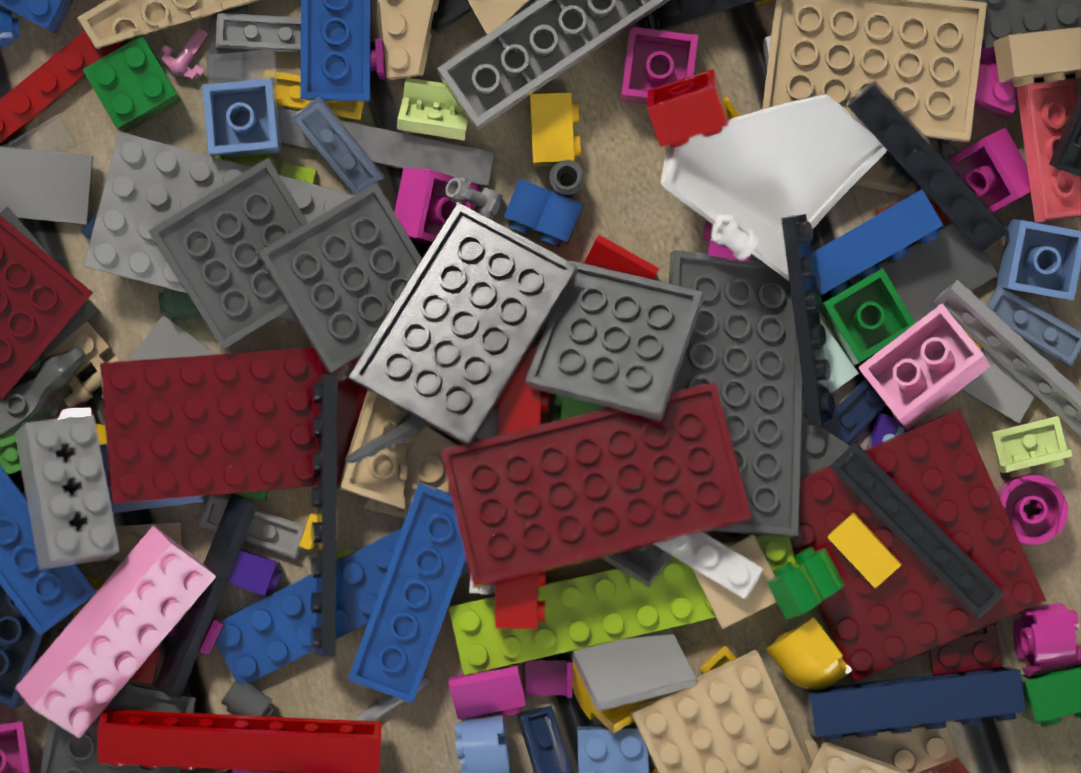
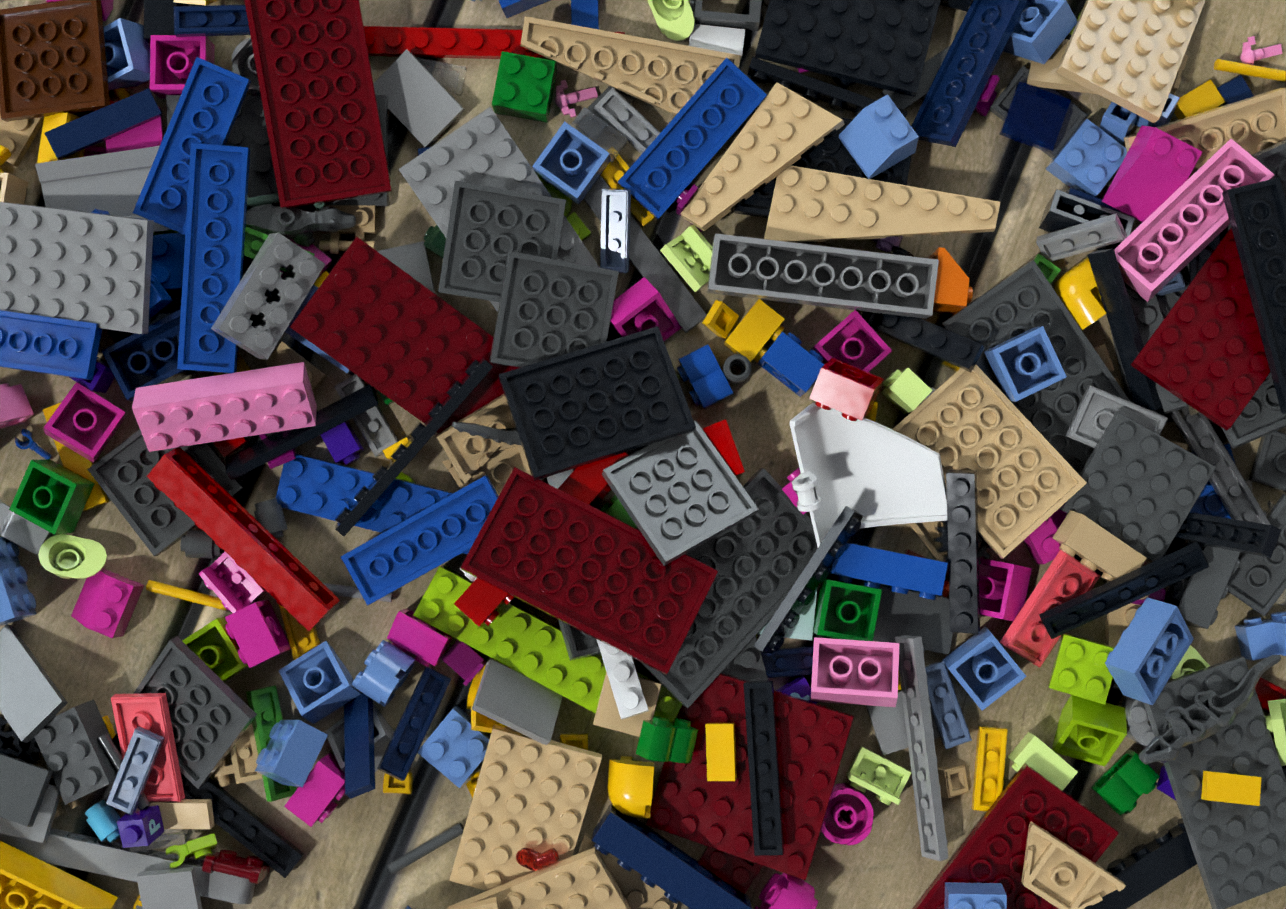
camera: 40 degrees right, 0 degrees up
(486, 203) = (676, 341): light grey bar -> none
(510, 145) = (720, 319): none -> yellow plate
(615, 128) = (792, 363): none -> blue brick
(742, 62) = (905, 390): none -> yellowish green brick

